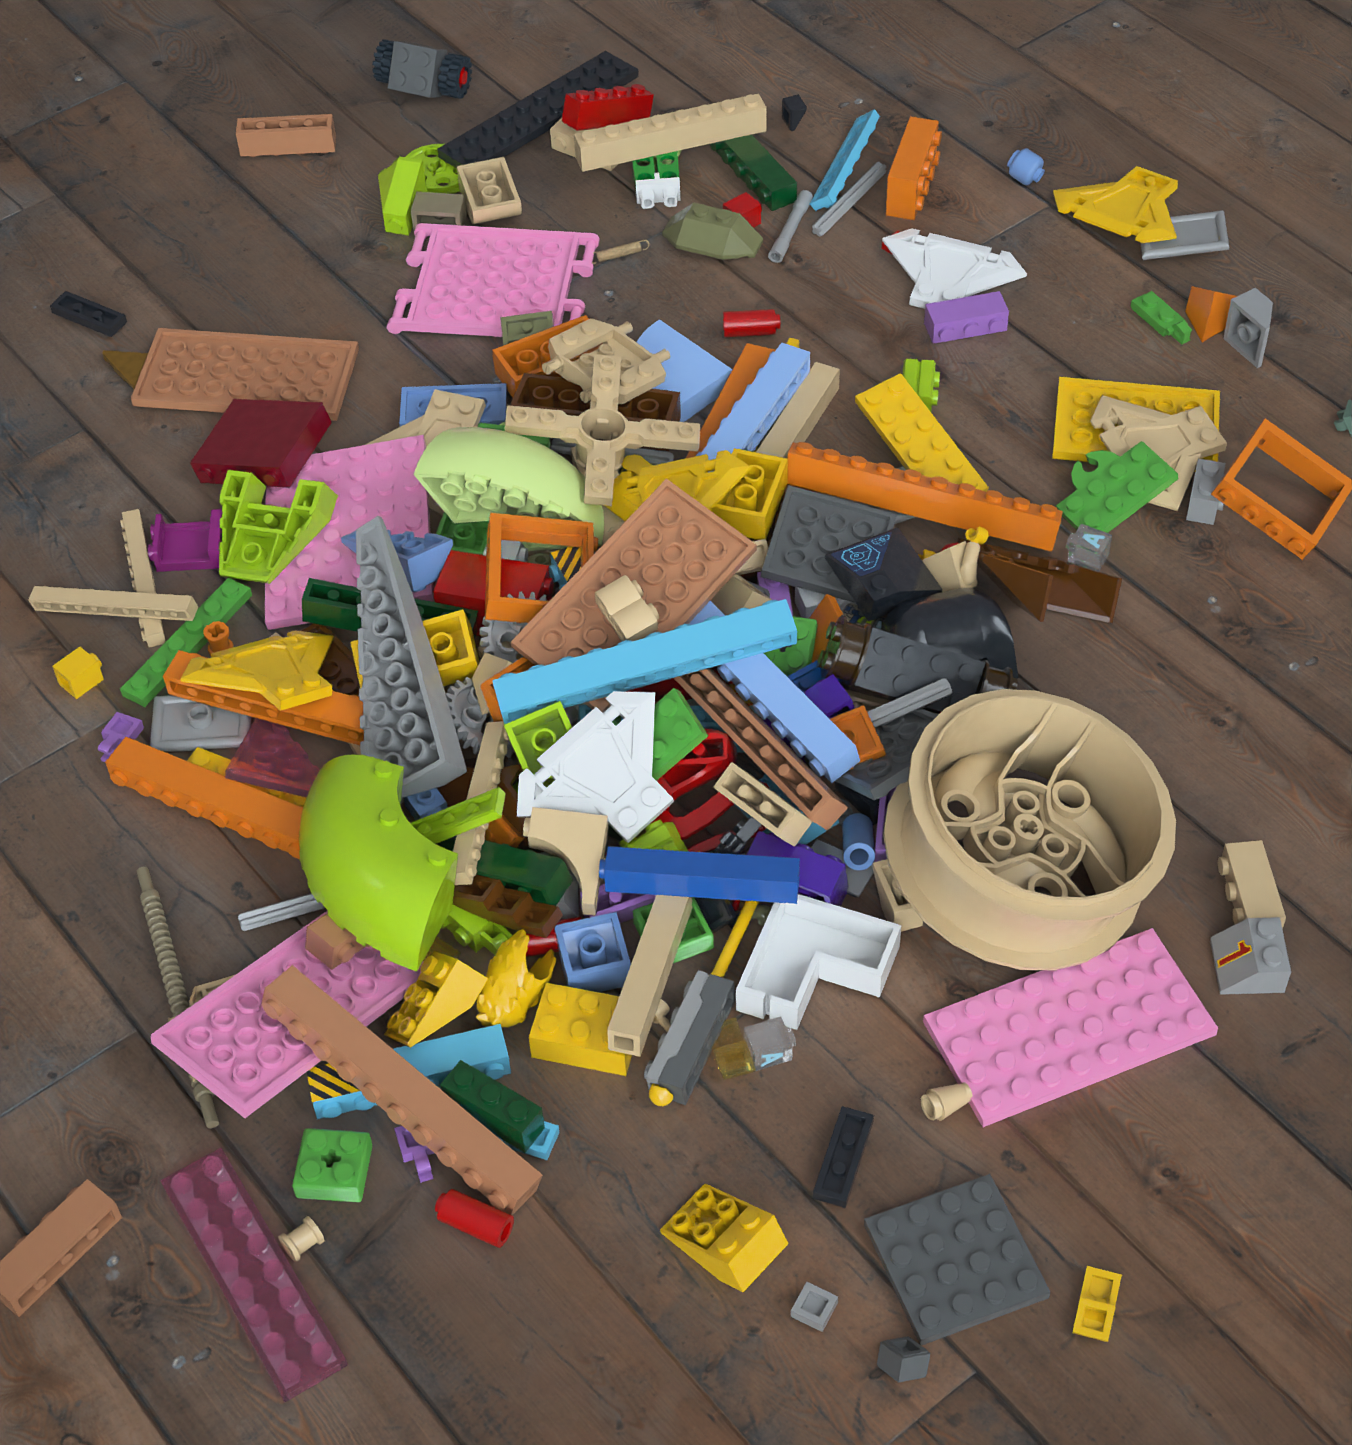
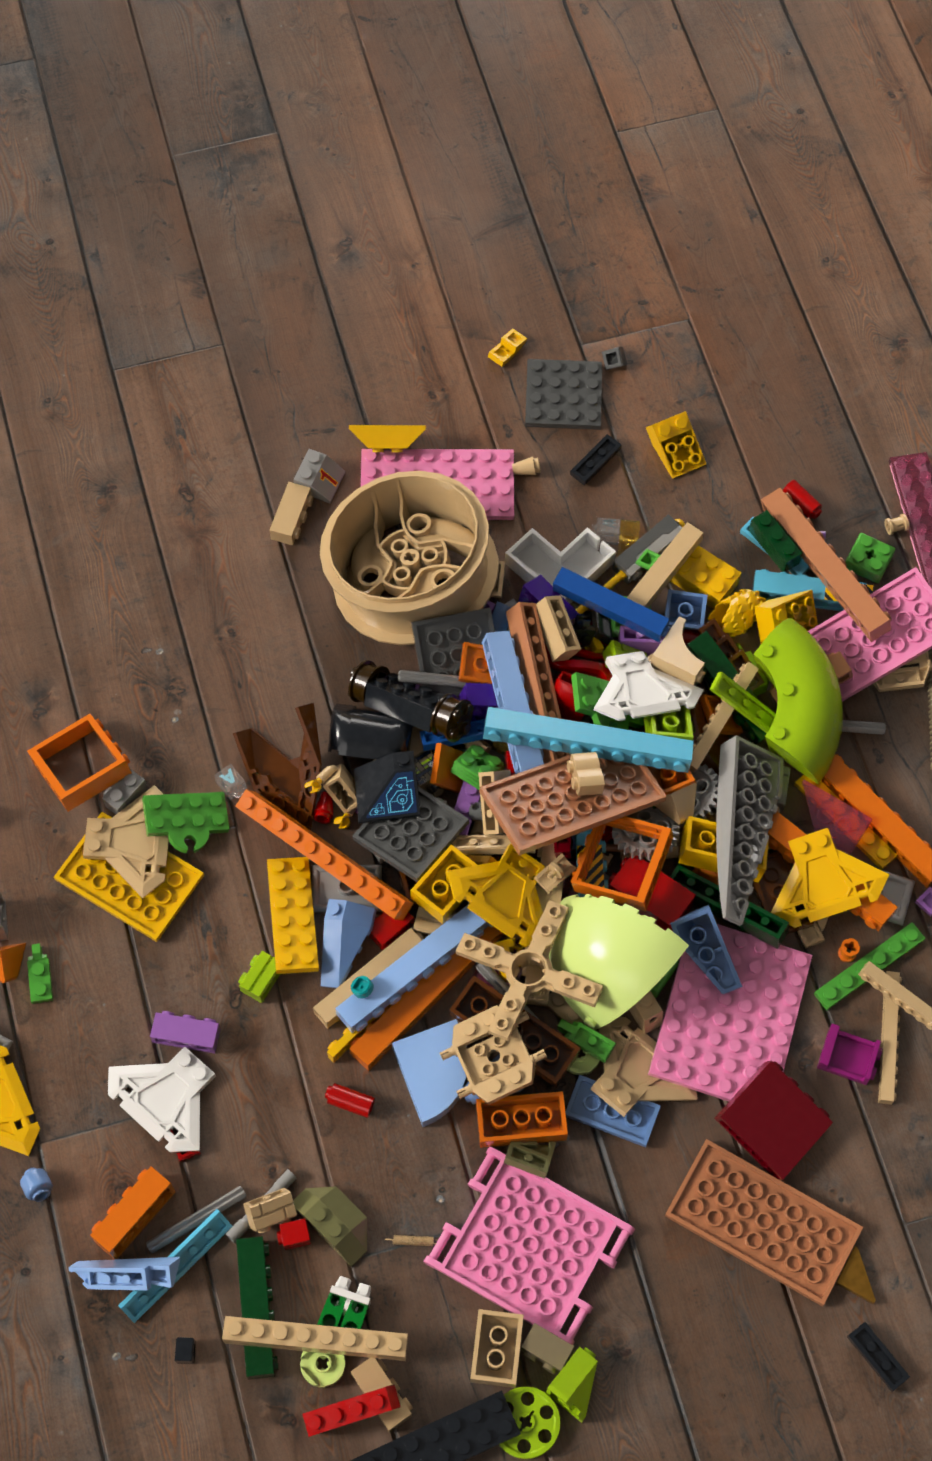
camera: 160 degrees left, 15 degrees up
(266, 538) = (795, 1024): lime wedge -> none
(679, 991) = (647, 559): none -> bright green slope
(778, 212) = (270, 1210): none -> tan brick
(789, 368) = (362, 987): none -> teal tile
(814, 1306) = (646, 395): light grey plate -> none
(848, 435) = (344, 932): none -> medium blue wedge
(874, 134) = (127, 1273): none -> light blue wedge
(1191, 1042) = (387, 436): none -> yellow wedge

